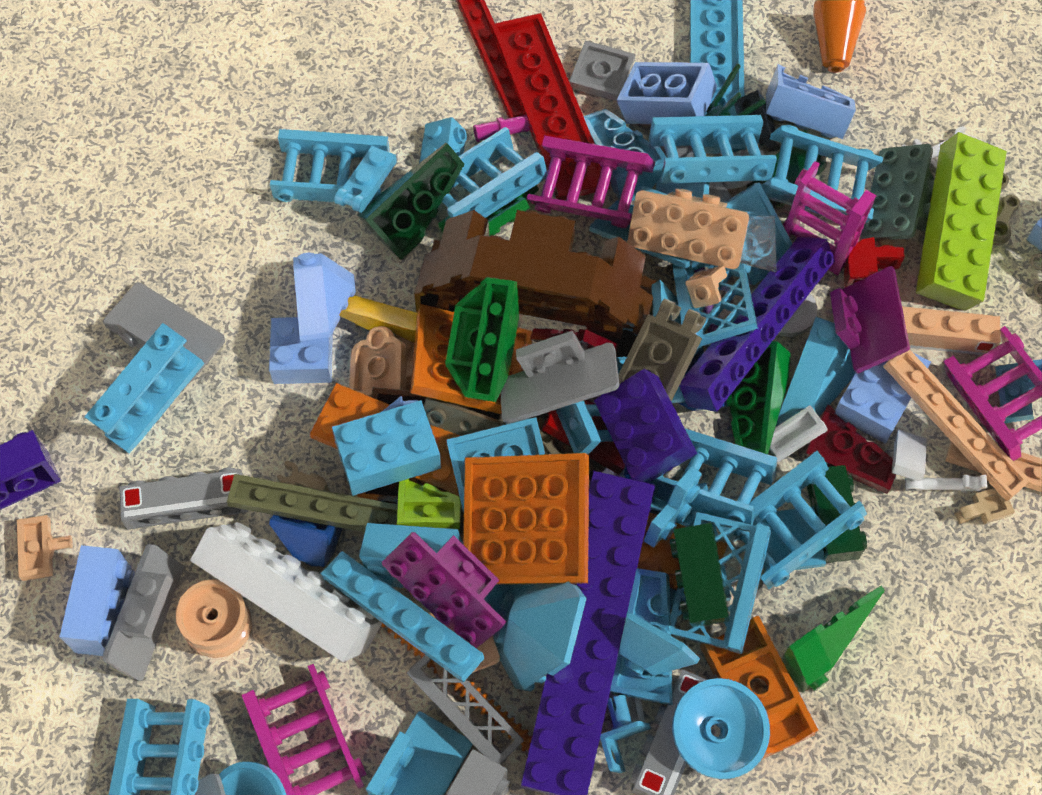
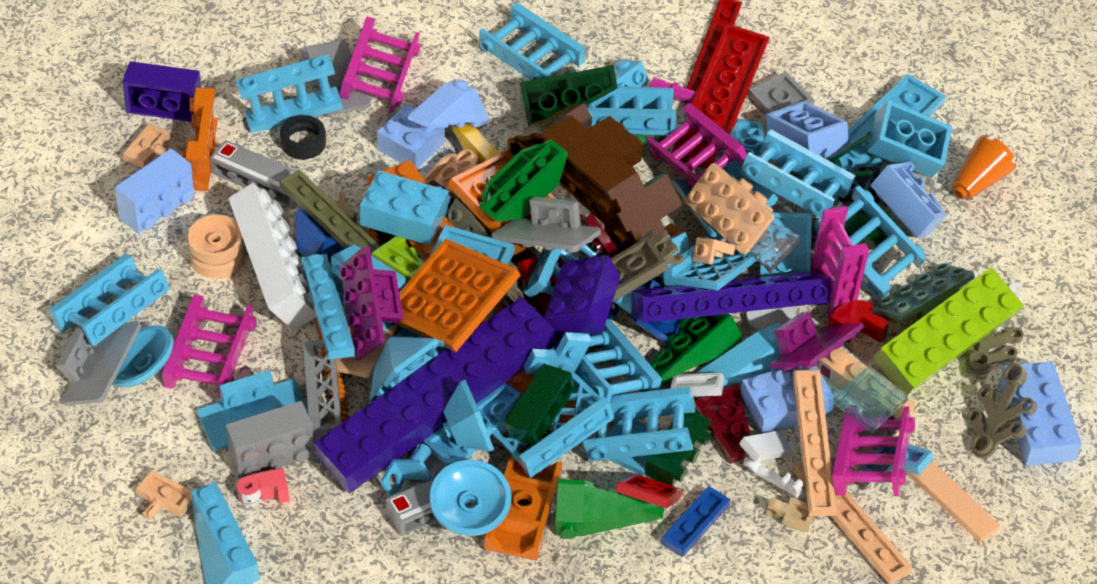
camera: 35 degrees right, 15 degrees down
(74, 476) = (202, 147): none -> orange piece
(143, 613) = (174, 214): light grey bracket -> none
(182, 307) = (363, 50): none -> dark pink fence
(197, 443) = (303, 150): none -> black tyre
(366, 179) = (545, 62): medium azure plate -> none
(760, 41) = (909, 137): none -> medium azure brick
(864, 587) = (650, 490): none -> red tile
(915, 581) = (695, 521): none -> blue plate
(967, 342) = (870, 398): none -> clear light blue tile

